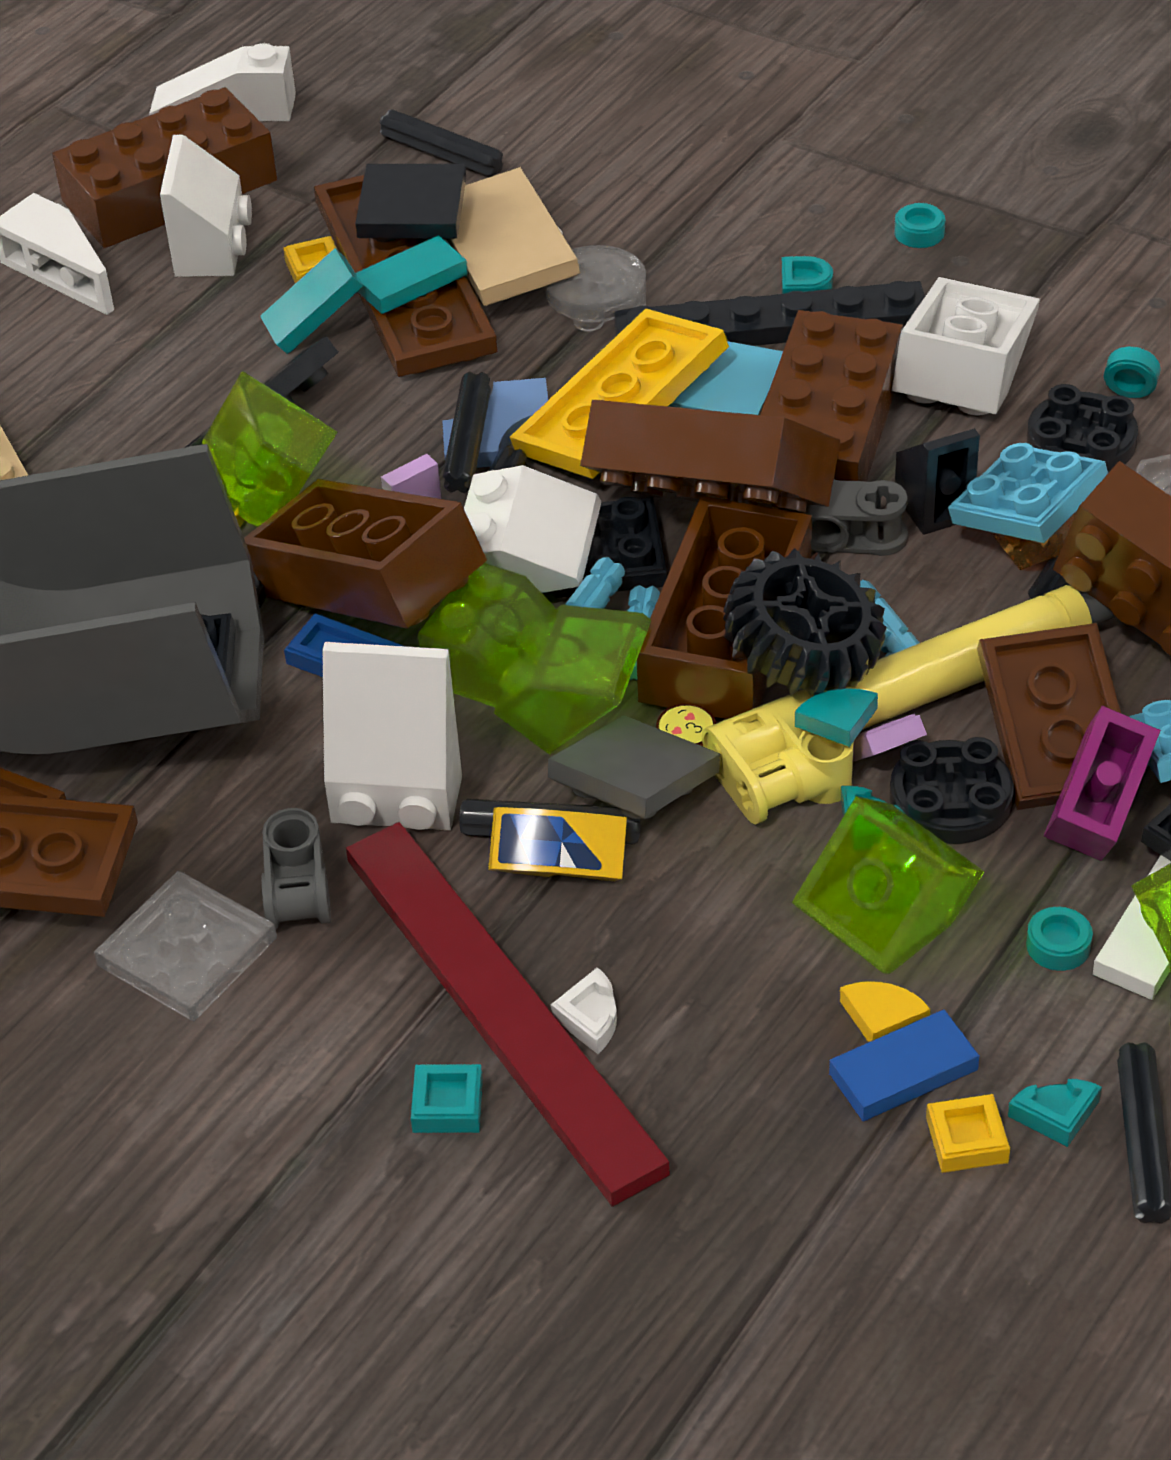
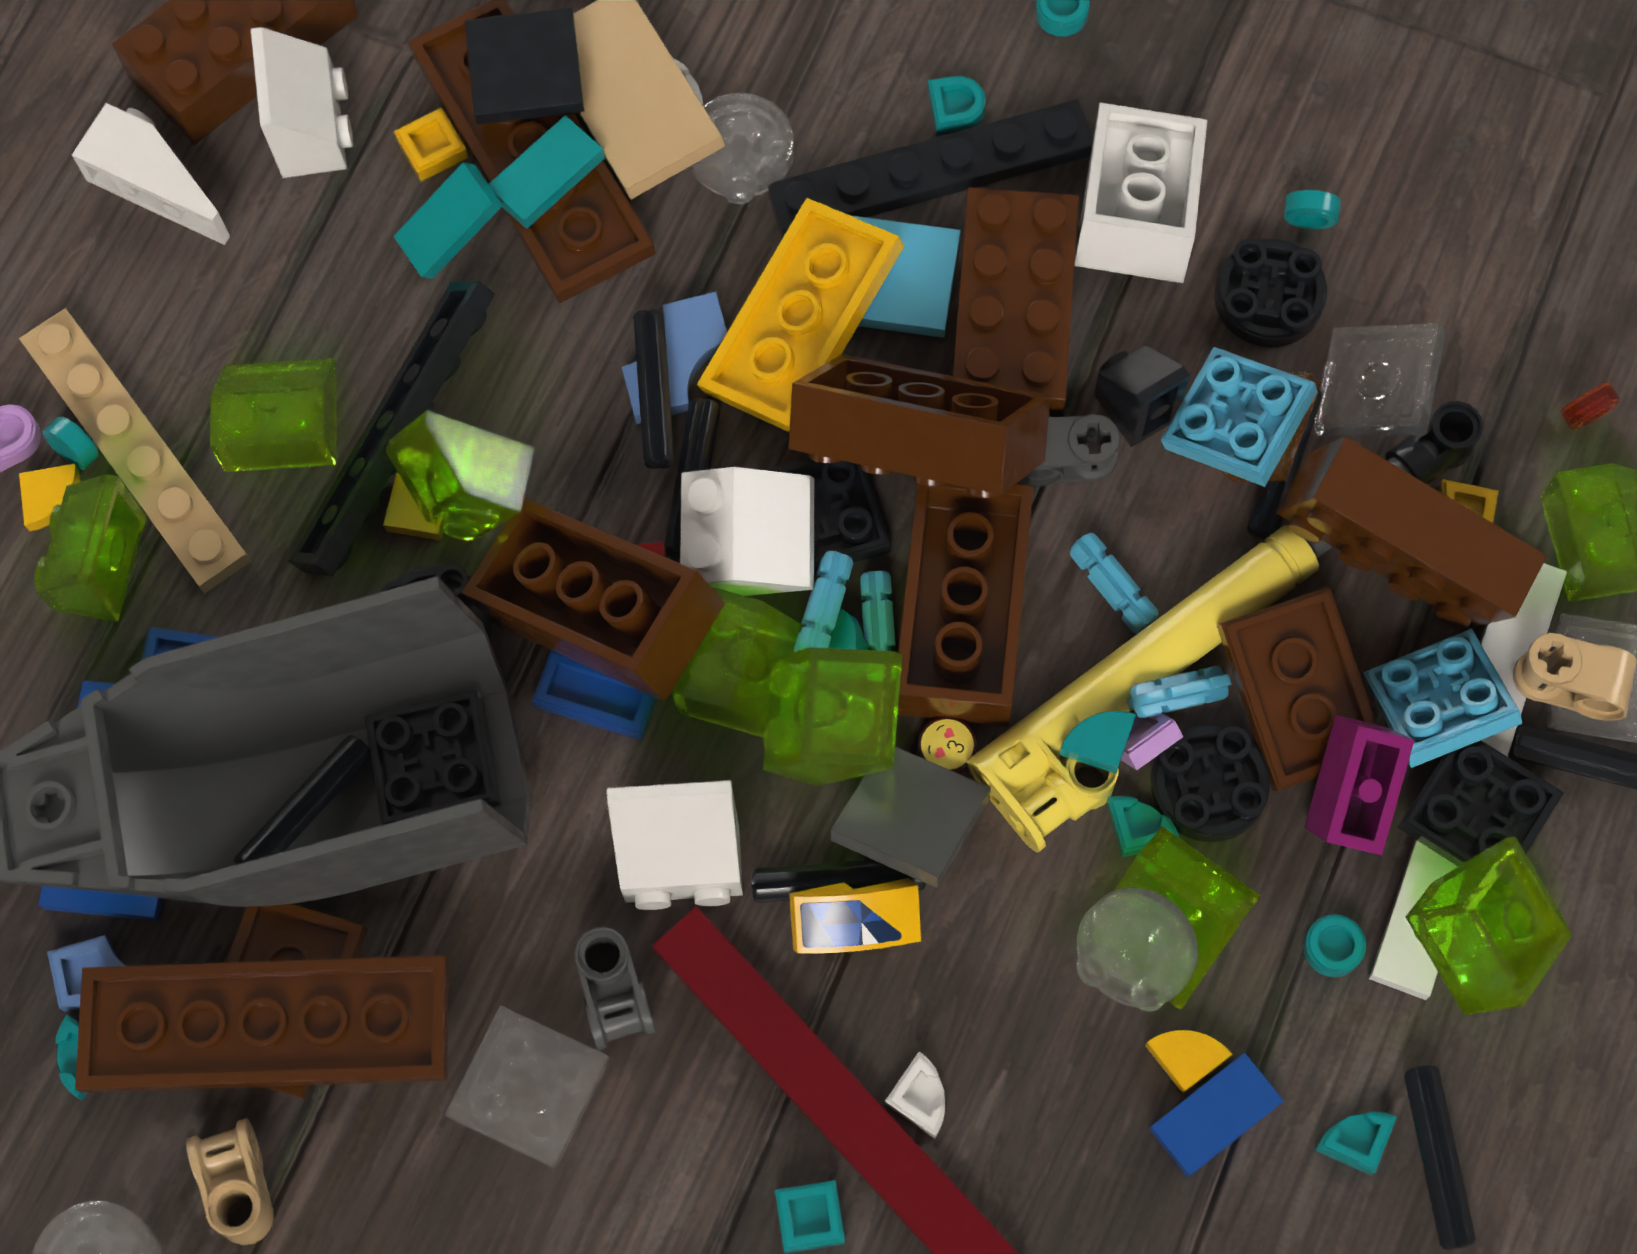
camera: 10 degrees left, 25 degrees up
(106, 422) = (275, 415): none -> clear neon green slope
(415, 478) = (612, 473): lavender tile -> none
(804, 623) = (1046, 602): black gear -> none
(843, 896) = (1136, 948): none -> clear tile
(931, 702) = (1179, 691): none -> medium azure axle
(967, 1133) = (1283, 1180): yellow tile -> none

